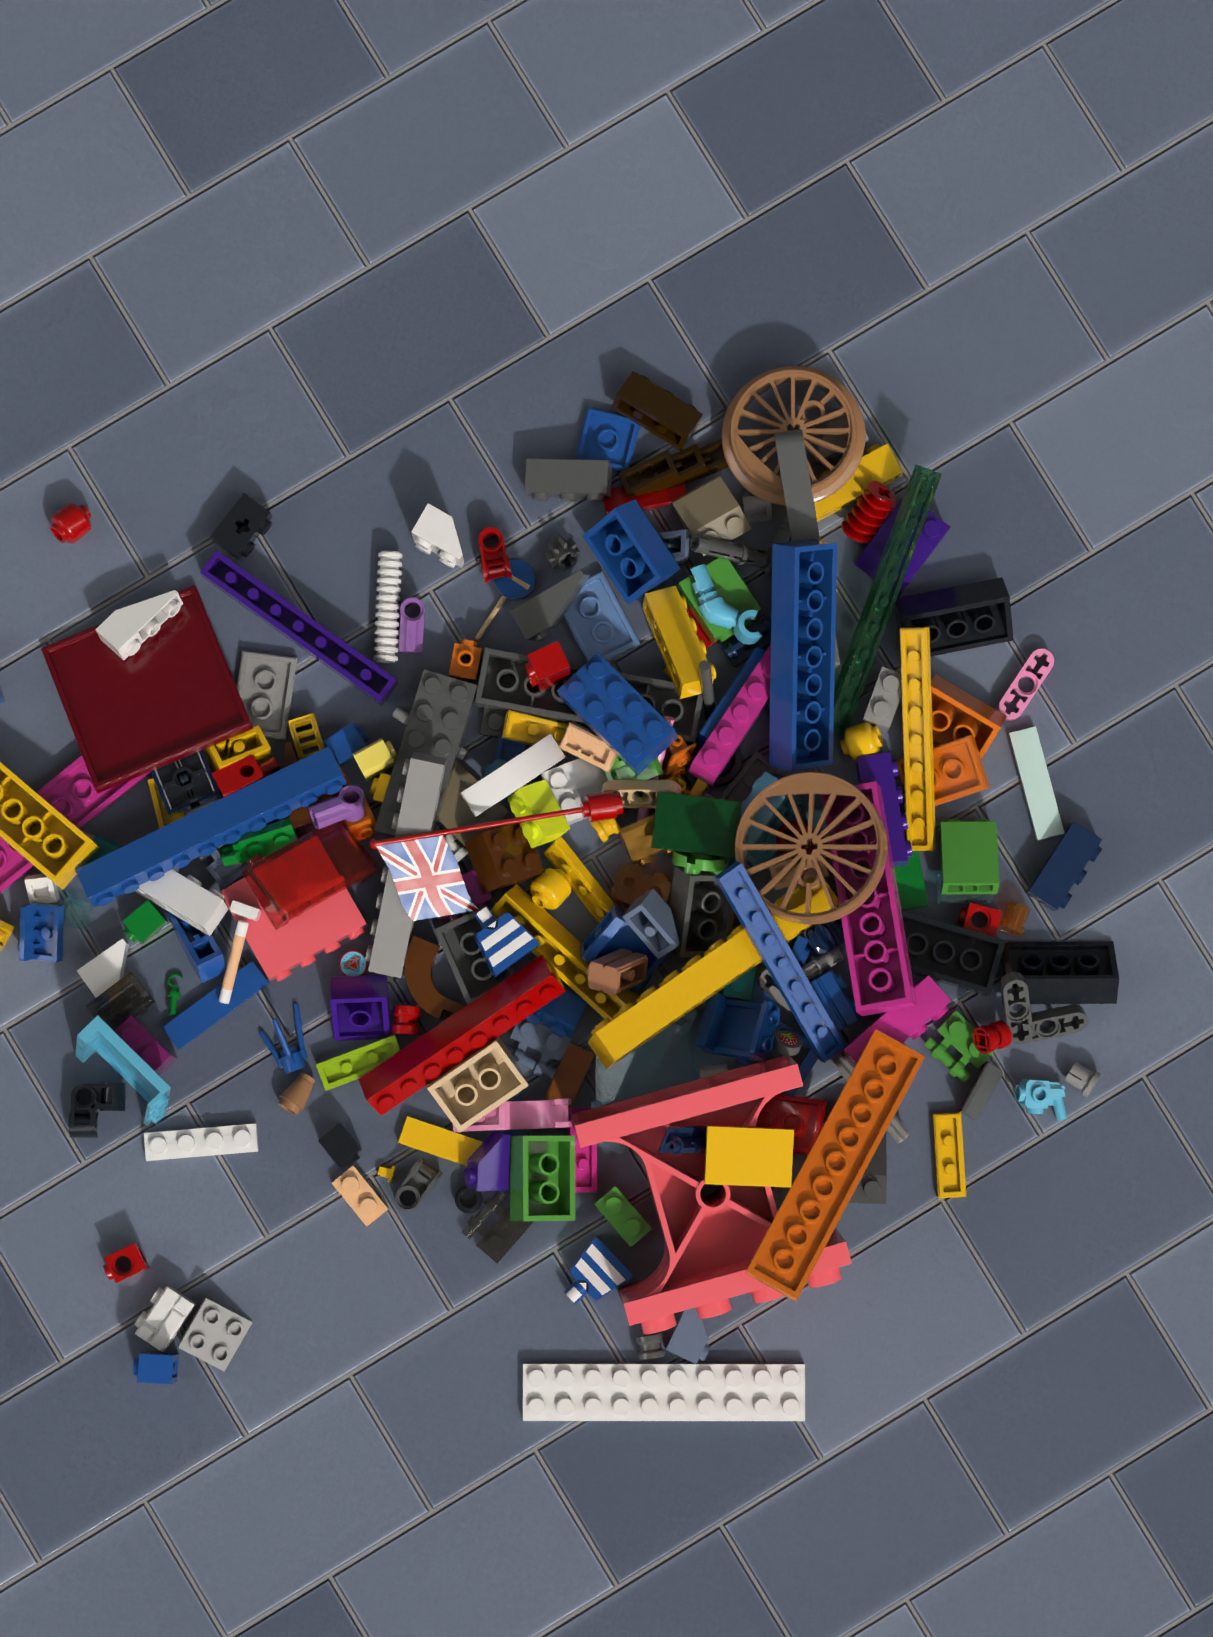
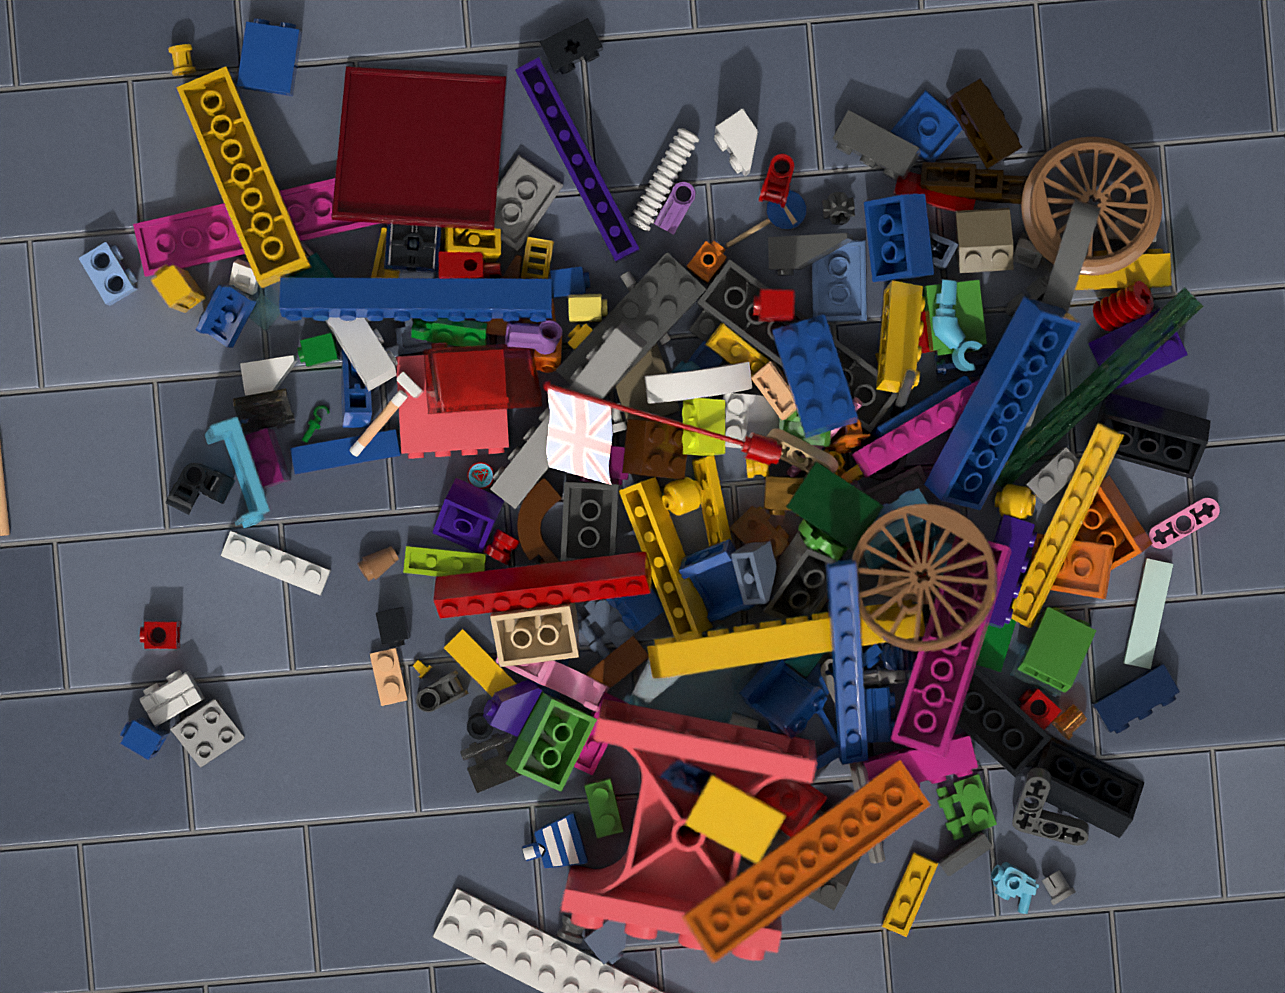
camera: 30 degrees right, 5 degrees up
(133, 624) = (435, 86): white slope -> none
(290, 1058) = (386, 529): blue plant -> none
(502, 940) = (617, 522): torso -> none
(617, 971) = (703, 598): nougat brick -> none
(738, 553) = (991, 285): dark grey pin -> none
(787, 1042) = (819, 731): dark grey tile -> none
(991, 1037) = (998, 813): red wheel -> none

